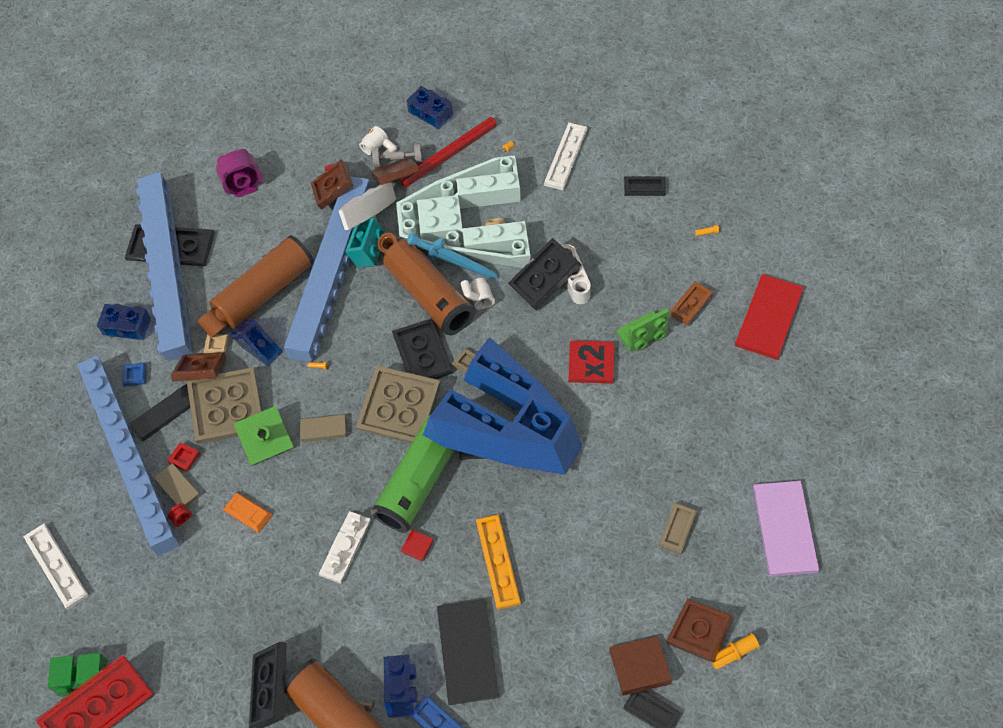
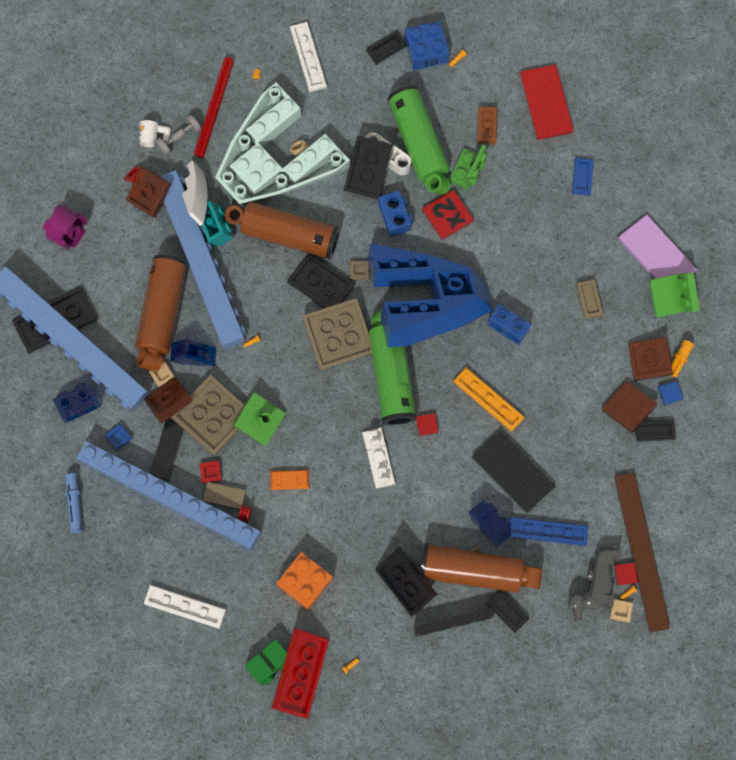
camera: 40 degrees left, 15 degrees up
(51, 399) = (72, 494): none -> medium blue pin
(175, 617) = (304, 581): none -> orange brick
(323, 428) = (295, 385): dark tan tile -> none
(394, 171) = (188, 150): copper tile -> none
(429, 107) = (170, 77): clear blue brick -> none
(437, 250) = (279, 196): dark azure sword -> none
(476, 291) = (330, 212): white piece -> none
(535, 329) = (390, 214): none -> blue brick
(572, 499) = (509, 324): none -> blue brick
(613, 276) = (420, 138): none -> bright green piece
(683, 201) = (426, 45): none -> blue brick
(698, 682) = (670, 393): none -> blue tile
(757, 405) = (582, 176): none -> blue tile
(771, 577) = (674, 294): none -> bright green bracket

